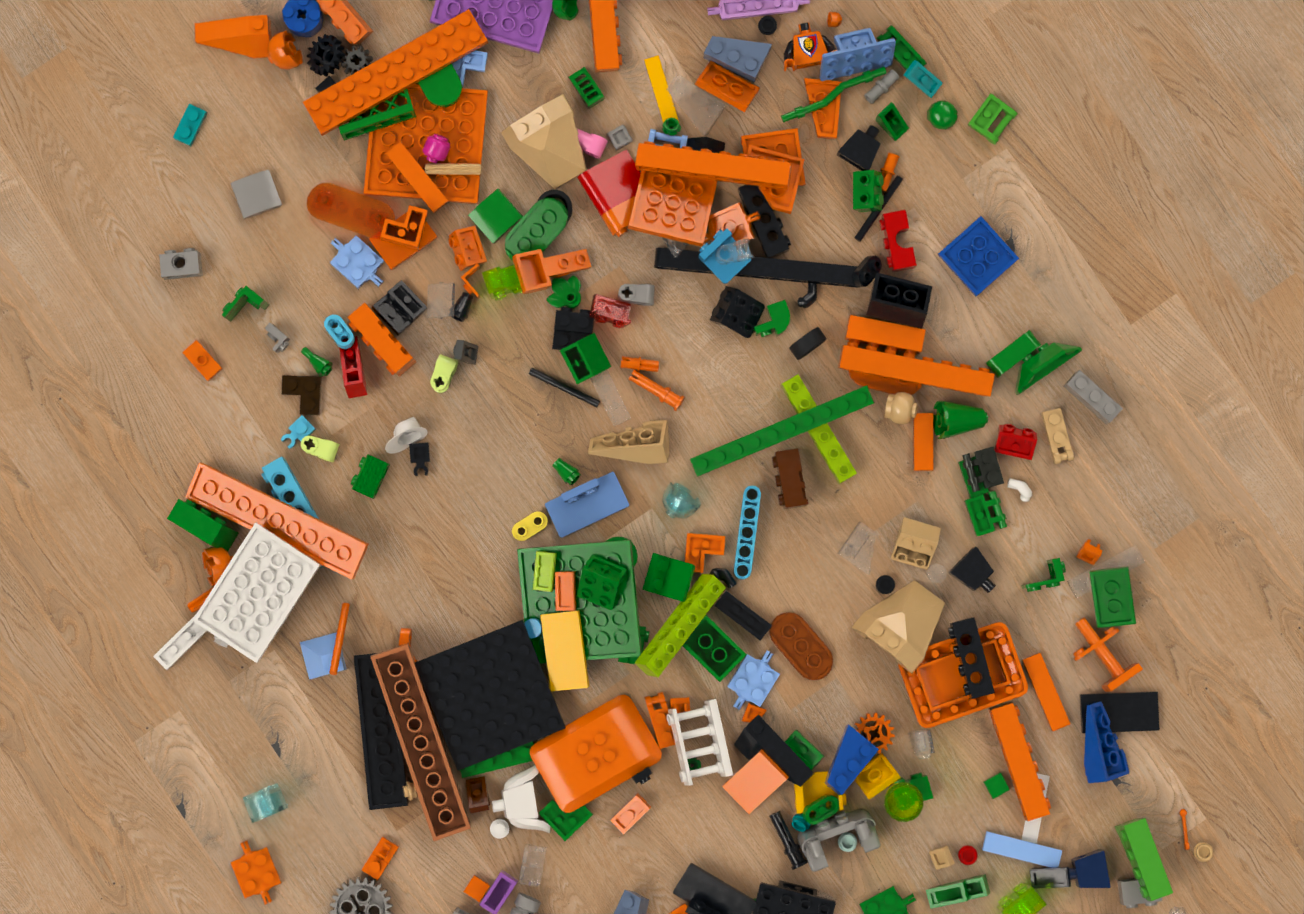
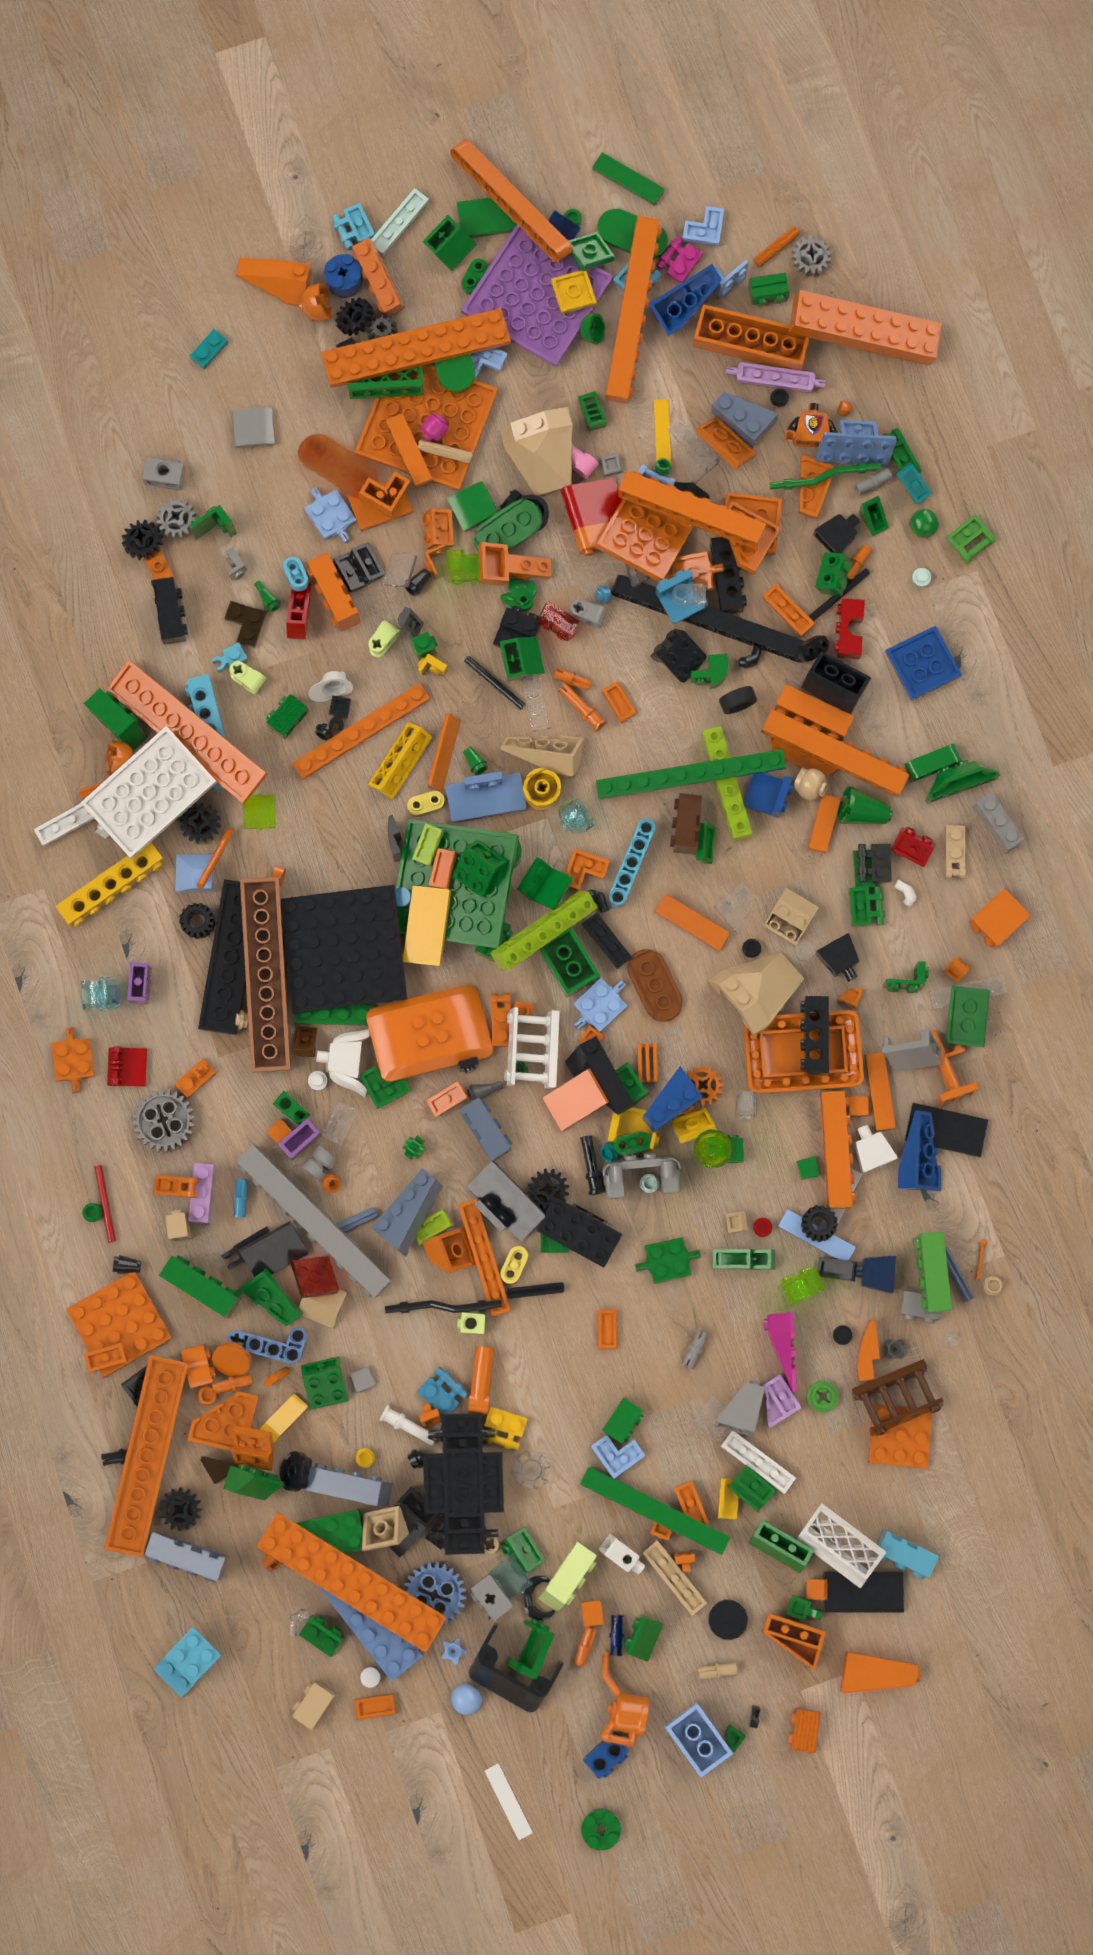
camera: 15 degrees right, 5 degrees down
(169, 337) = (134, 539): none -> black gear
(201, 313) = (170, 523): none -> light grey gear
(209, 726) = (115, 873): none -> yellow brick
(226, 402) = (169, 610): none -> black wedge
(299, 781) = (139, 983): none -> medium lavender brick
(310, 865) = (127, 1066): none -> red hinge
(322, 604) = (192, 822): none -> black gear
(327, 707) = (189, 912): none -> black tyre
(370, 578) = (260, 812): none -> clear neon green piece
(411, 482) = (324, 731): none -> black plate
(446, 471) = (361, 731): none -> orange plate
(481, 863) = (291, 1108): none -> green leg
(485, 370) = (424, 645): none -> green brick
(496, 490) = (402, 761): none -> yellow fence
(502, 387) = (435, 665): none -> yellow bracket
(507, 566) = (394, 836): none -> dark grey slope
(532, 198) = (514, 495): none -> black pin
(534, 471) = (444, 752): none -> orange slope
(611, 869) = (414, 1147): none -> green gear
(640, 472) = (547, 779): none -> yellow brick
(647, 271) = (603, 594): none -> dark azure plate
(659, 797) = (483, 1090): none -> dark grey cone
(676, 833) = (486, 1129): none -> sand blue wedge
(691, 374) = (619, 702): none -> orange tile
(748, 867) = (539, 1190): none -> black gear
(809, 709) = (655, 1072): none -> orange tile
(813, 493) = (705, 843): none -> green tile
(821, 574) = (692, 922): none -> orange slope
(832, 238) = (788, 610): none -> orange plate
(862, 428) = (768, 794): none -> blue bracket
(954, 170) = (921, 577): none -> light aqua plate
(994, 606) = (851, 997): none -> orange tile
(1029, 711) = (858, 1106): none -> orange tile
(1033, 835) = (823, 1212): none -> black tyre
(1054, 752) = (872, 1150): none -> white torso
(1071, 651) = (913, 1054): none -> light grey panel
(1118, 492) = (999, 919): none -> orange panel
(1168, 853) = (958, 1277): none -> sand blue axle

